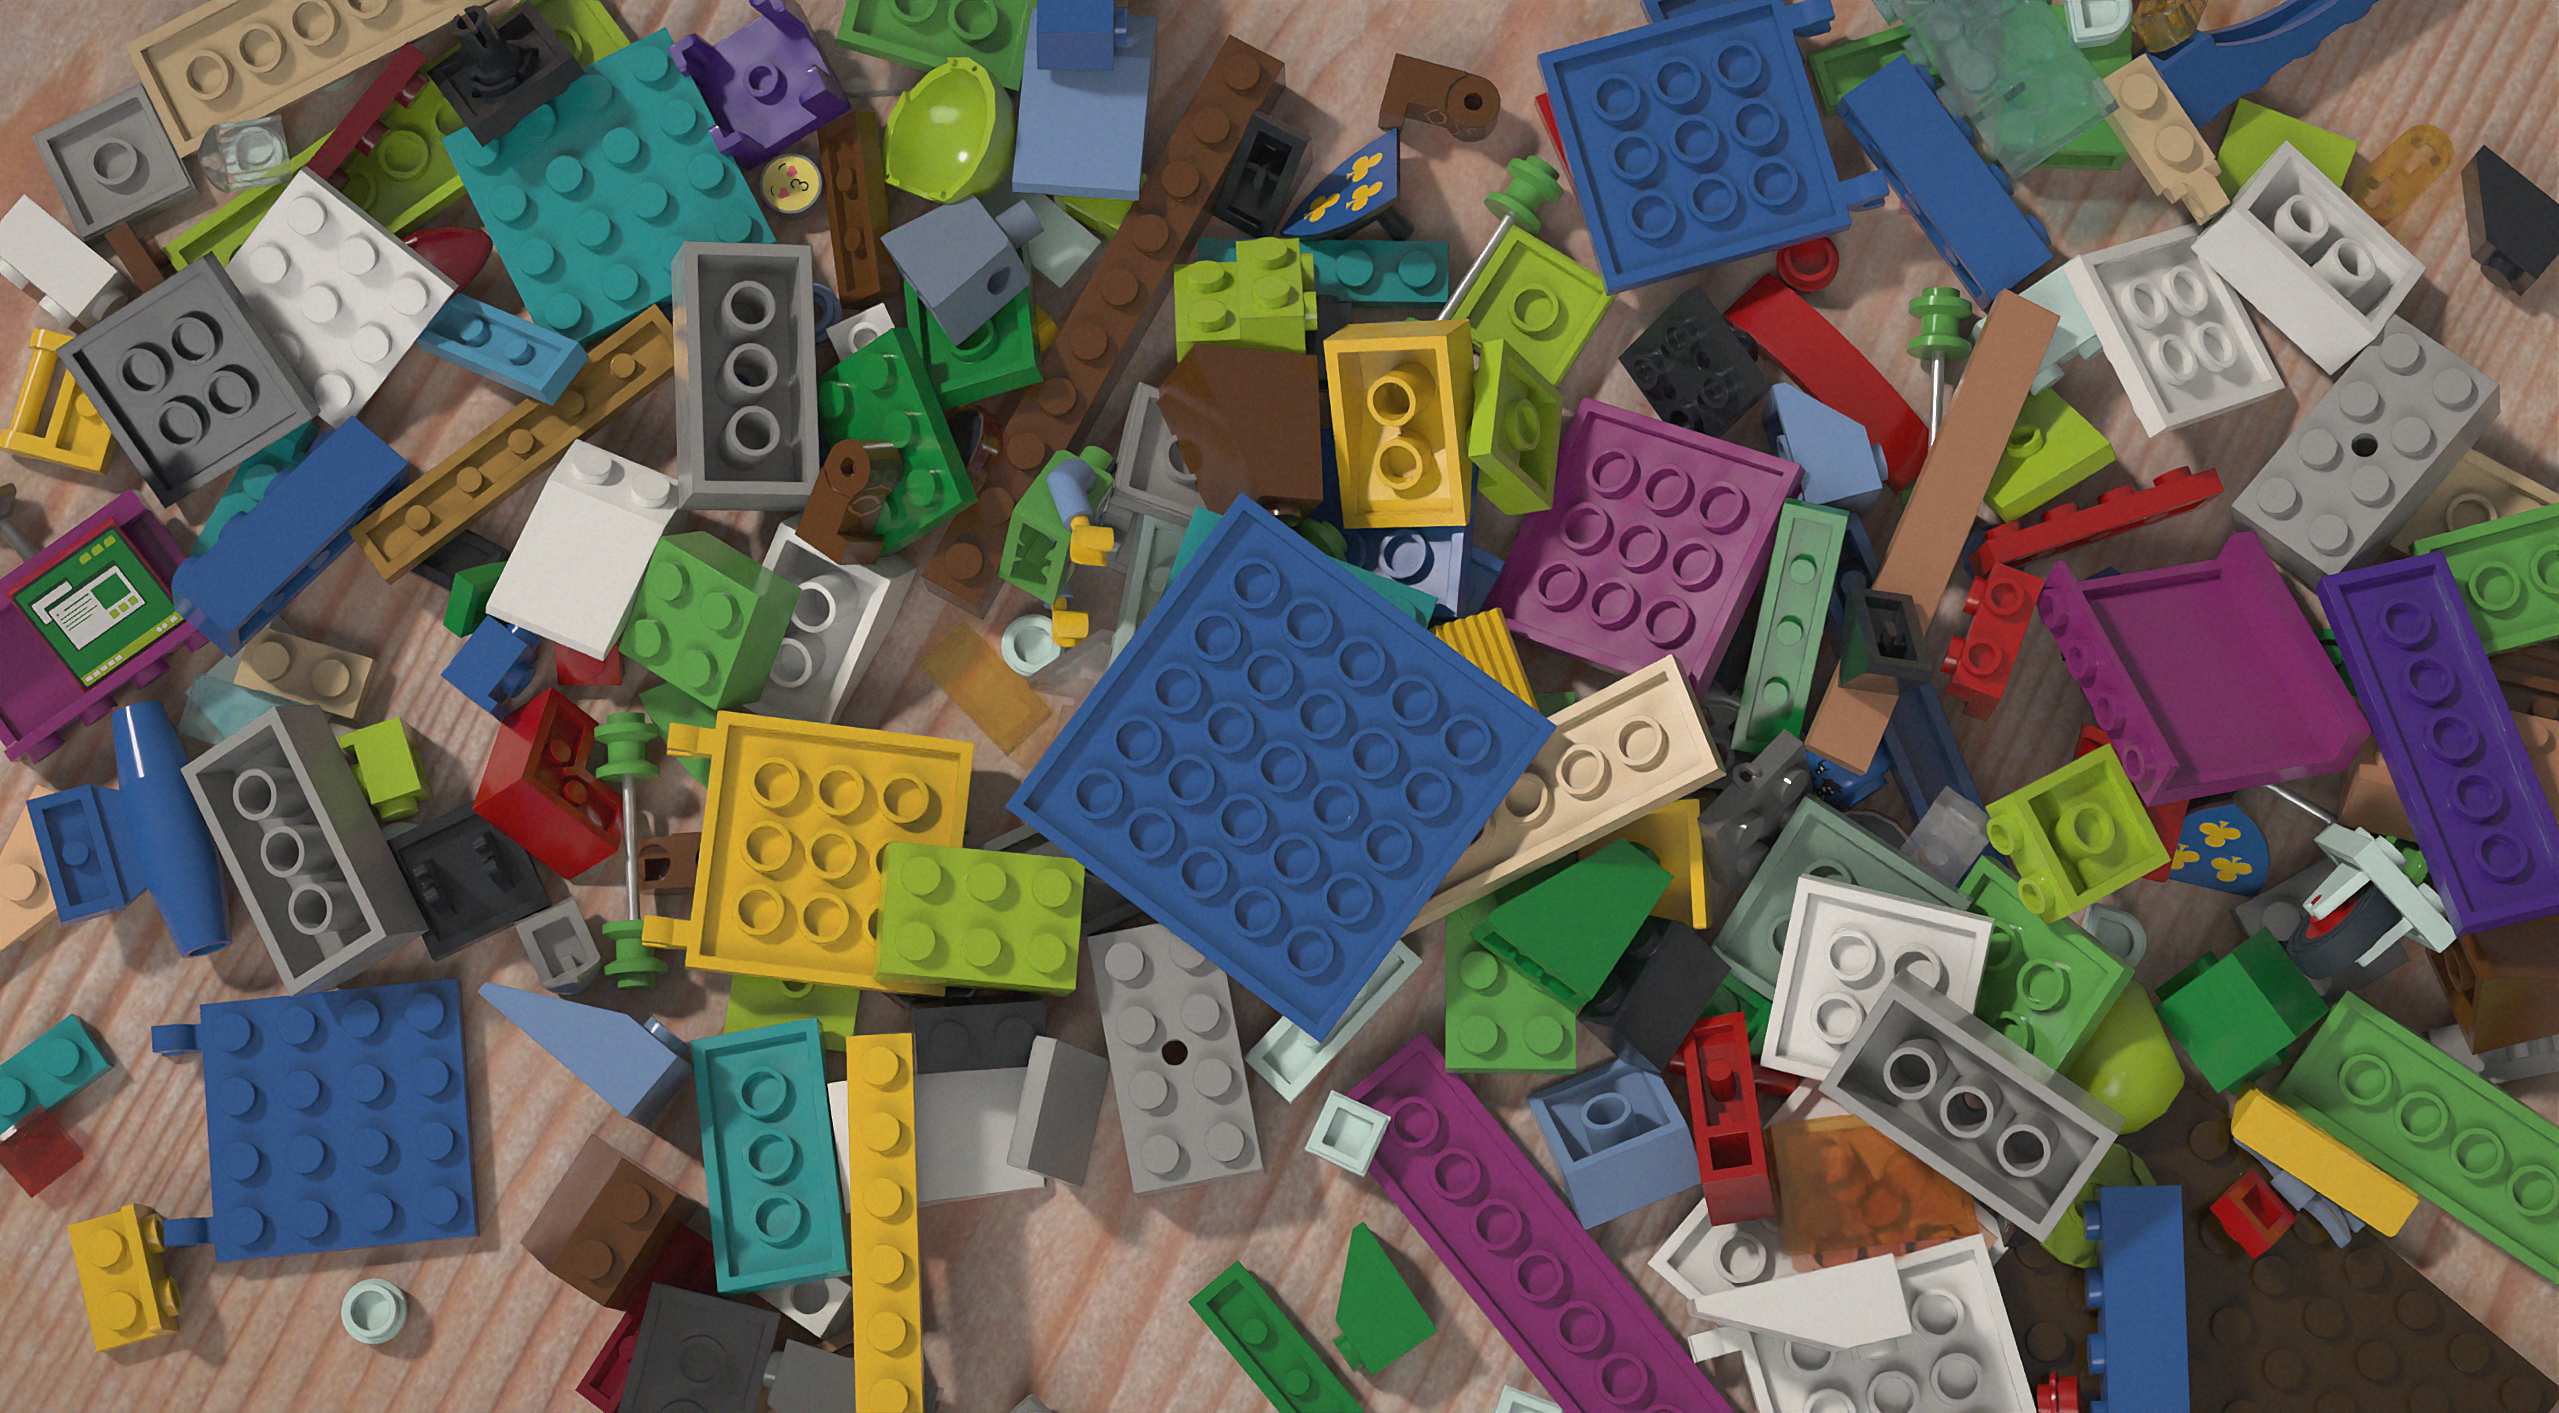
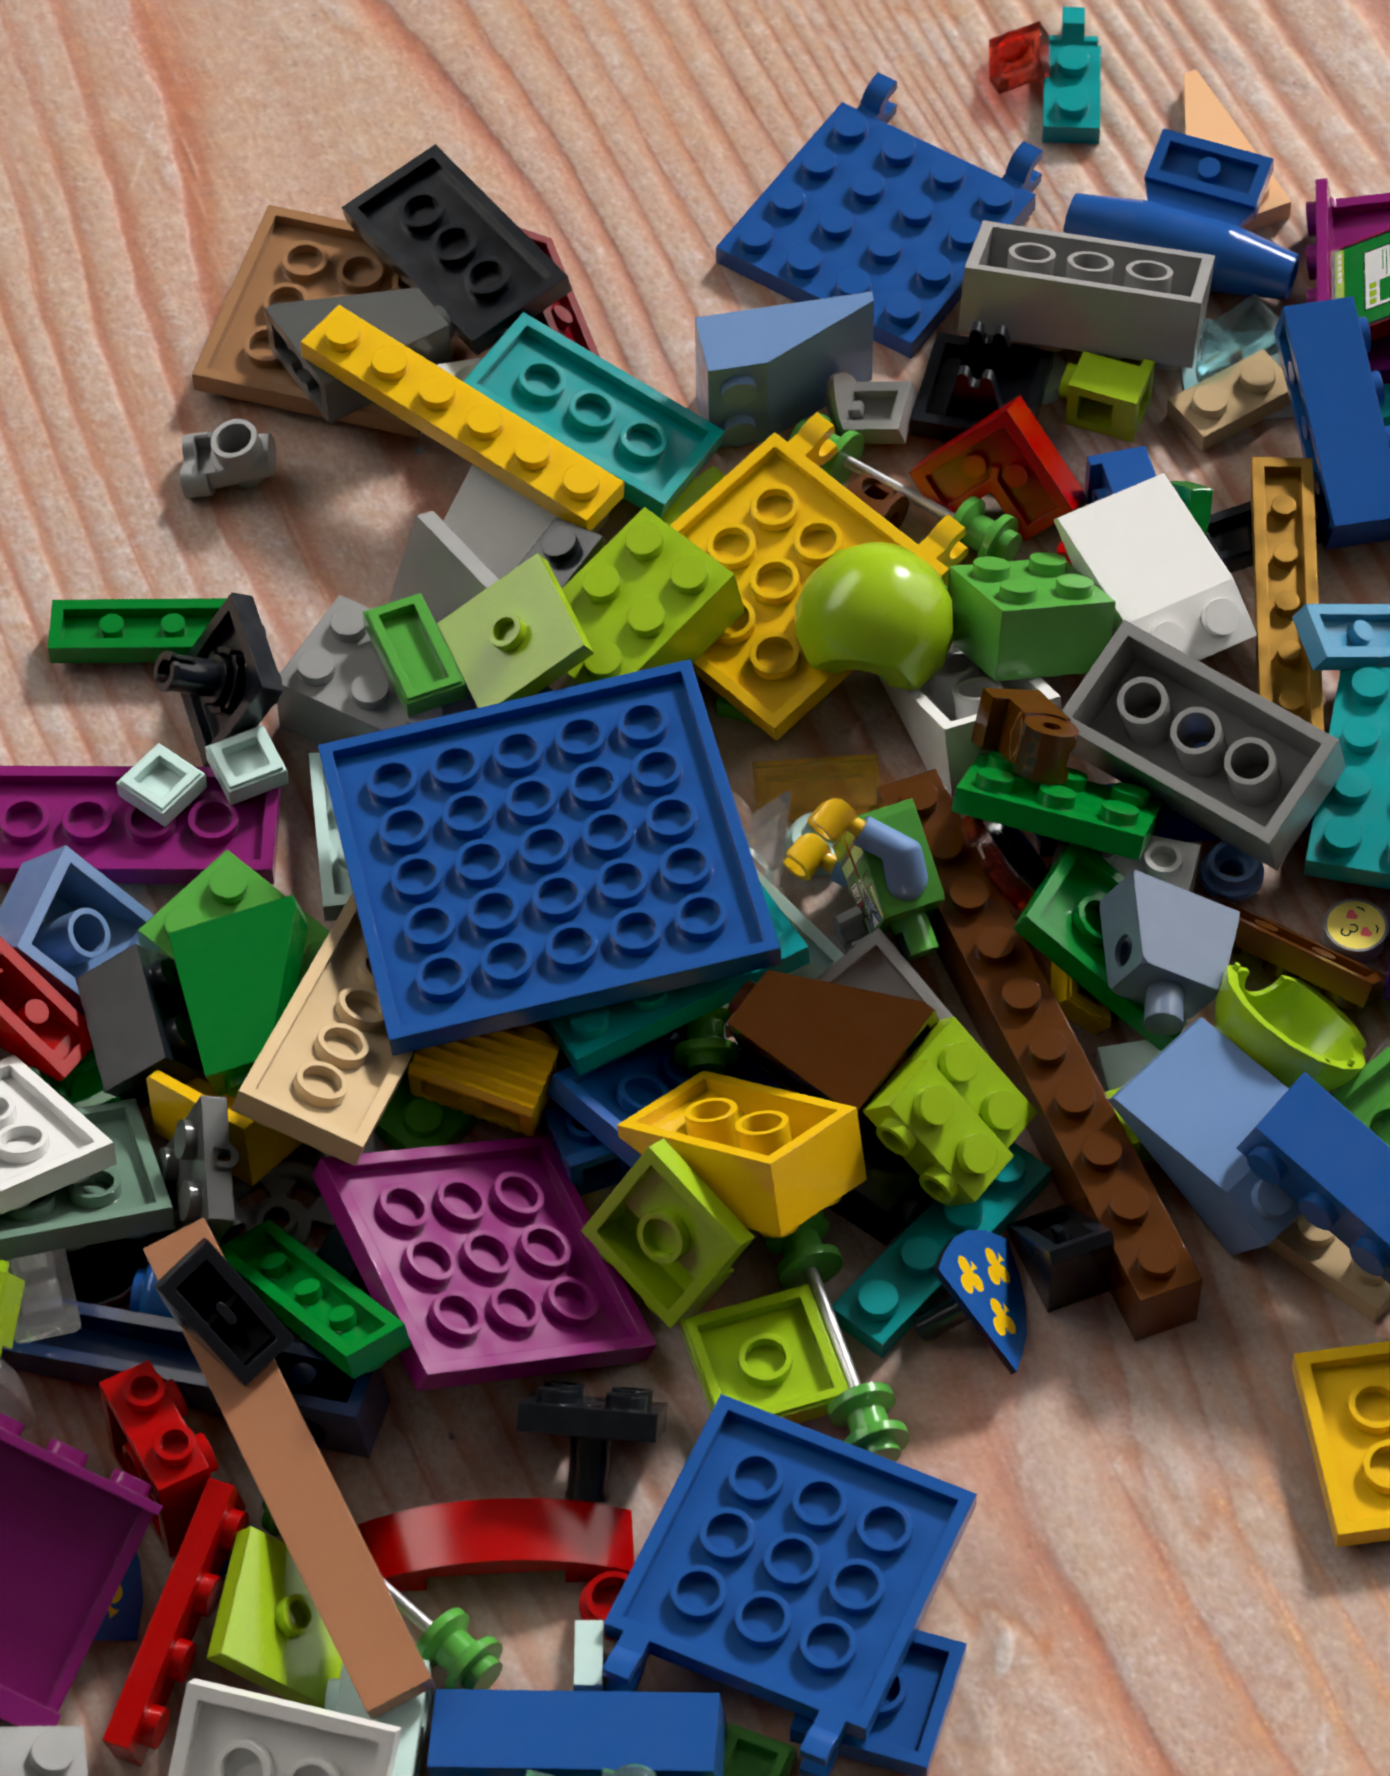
camera: 125 degrees right, 25 degrees down
(125, 1277) = (866, 47): yellow bracket -> none
(374, 1311) = (721, 167): light aqua plate -> none
(607, 1224) = (633, 294): reddish brown slope -> none
(816, 727) = (877, 614): none -> lime cylinder
(1088, 975) = (515, 635): none -> lime plate
(1156, 1062) = (414, 654): none -> bright green tile
(1287, 1218) = (226, 675): none -> black plate
(1376, 1308) = (109, 709): green slope -> none
(1422, 1184) = (161, 784): none -> light aqua tile
(1440, 97) = (1017, 1428): reddish brown leg -> none
(1832, 448) = (431, 1446): medium blue slope -> none
(1873, 230) = (589, 1655): none -> light aqua tile

